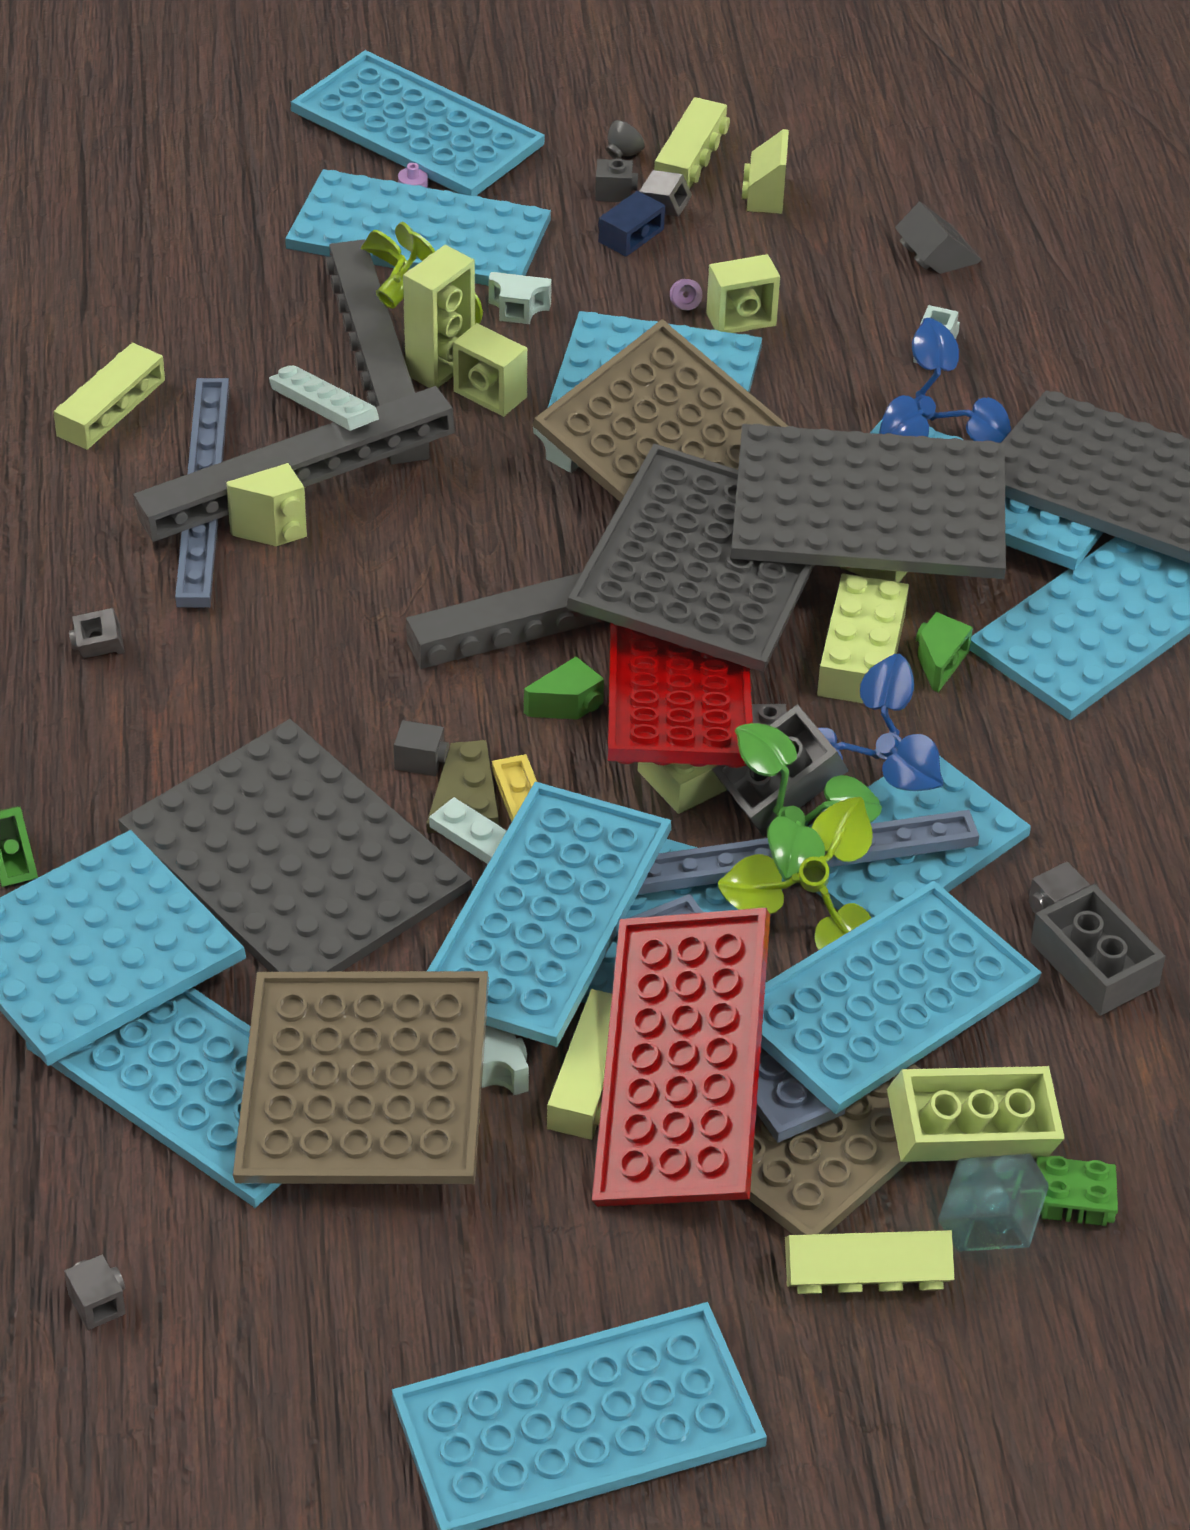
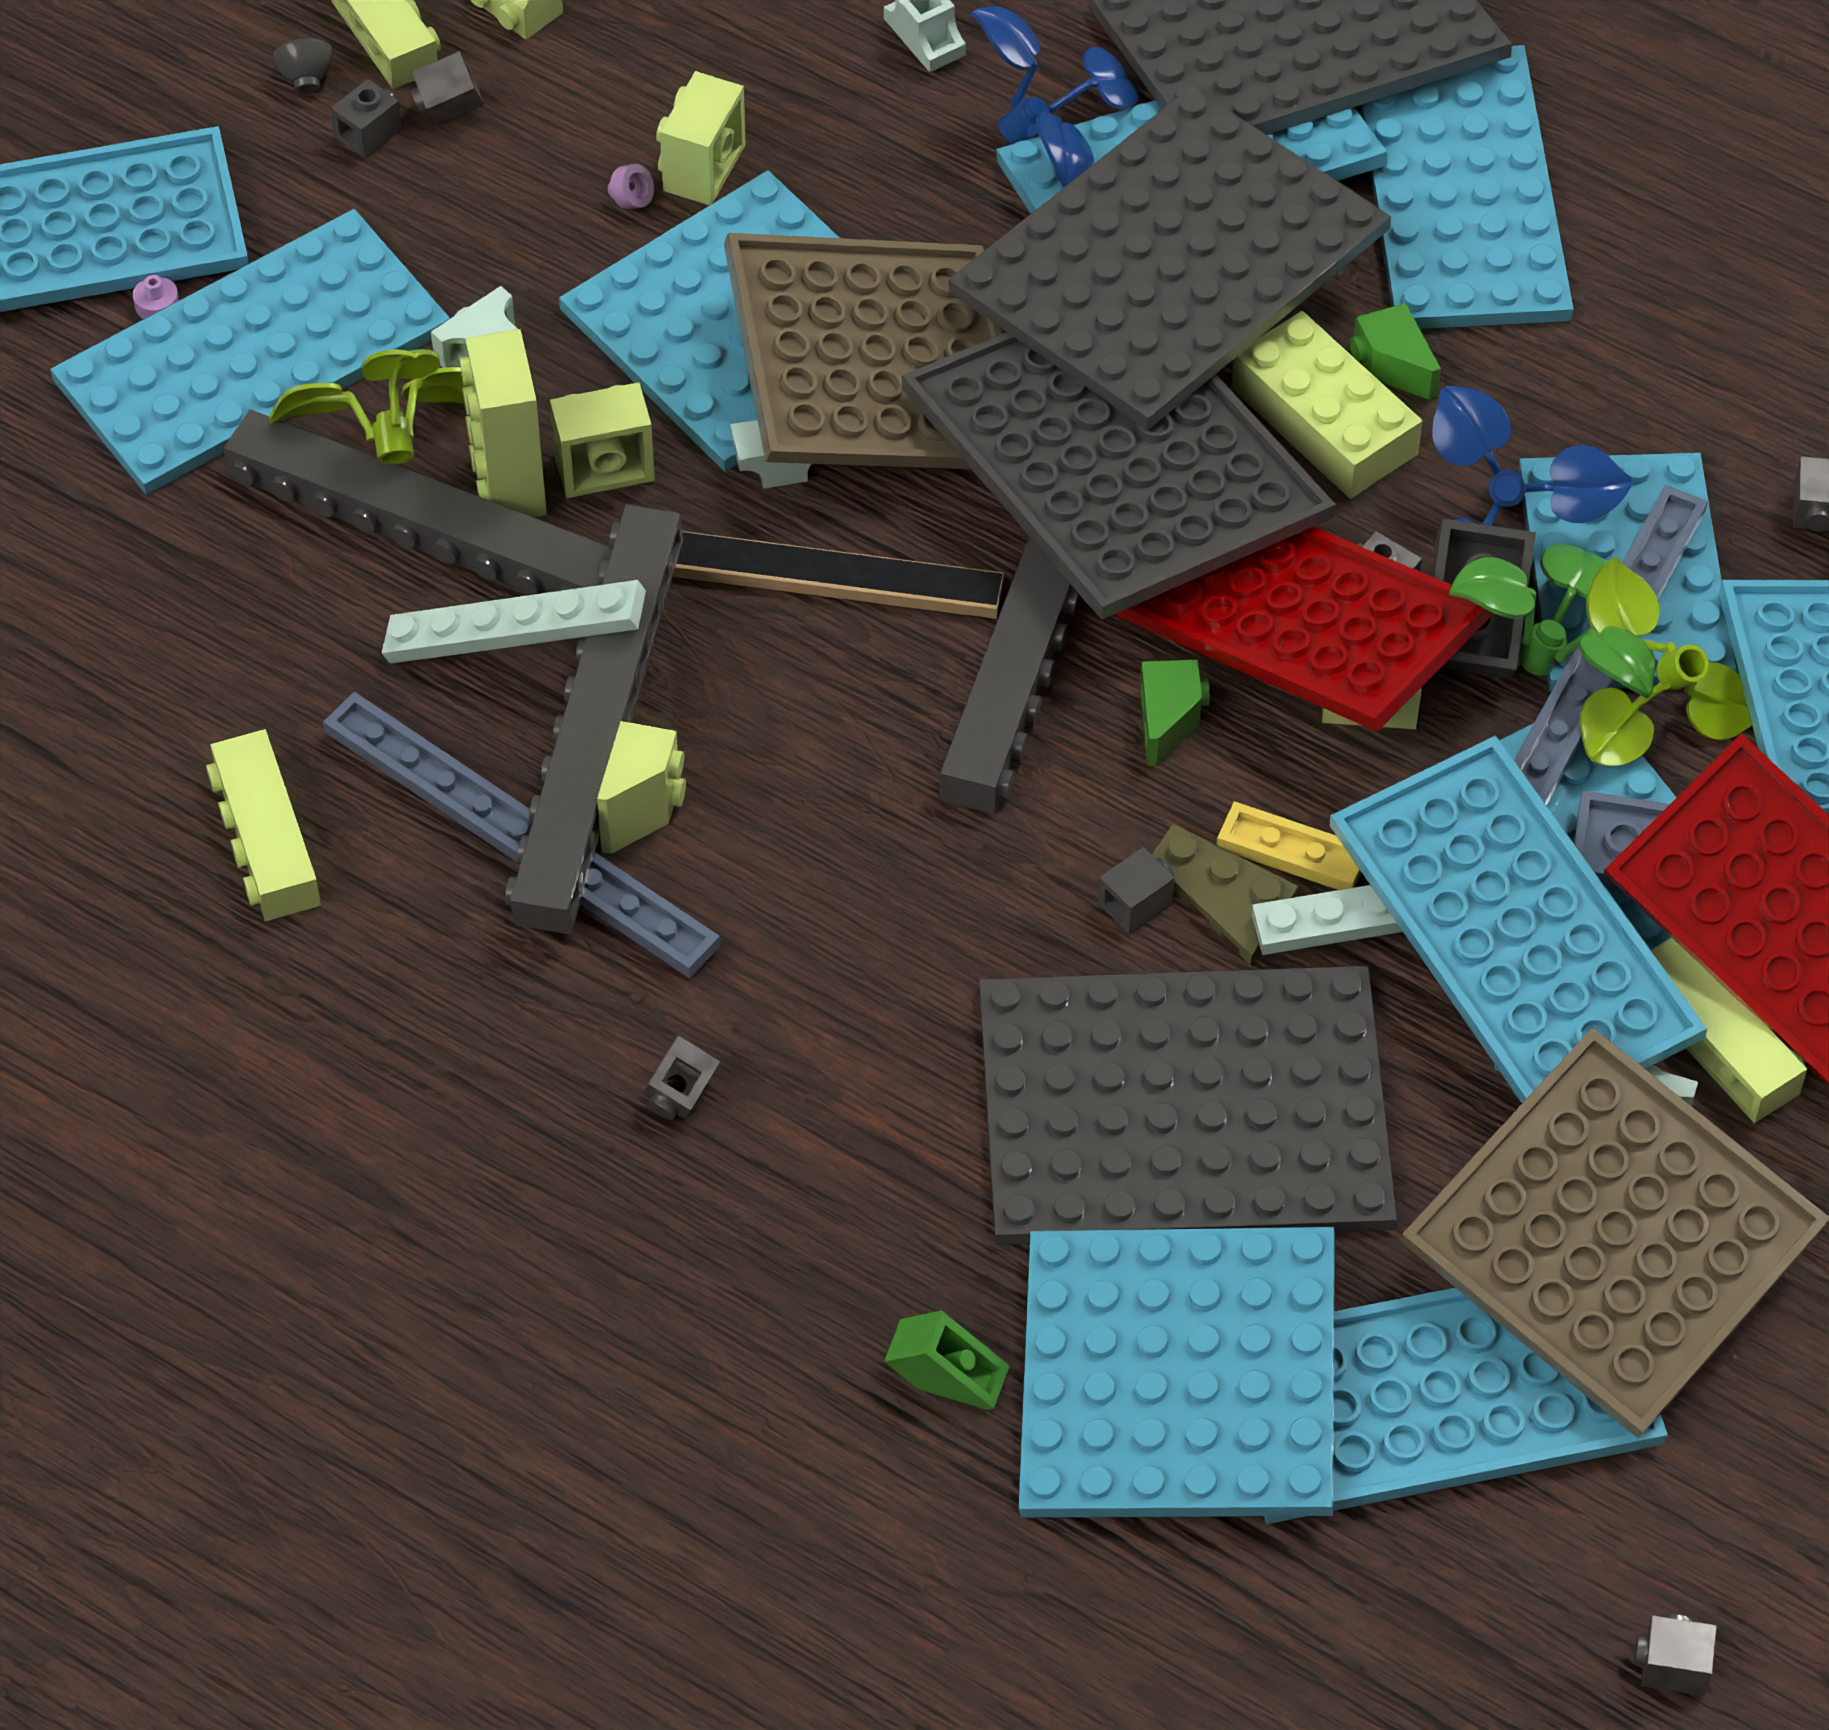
camera: 50 degrees left, 10 degrees up
(506, 505) = (840, 575): none -> black tile
(631, 223) = (458, 153): dark blue brick -> none

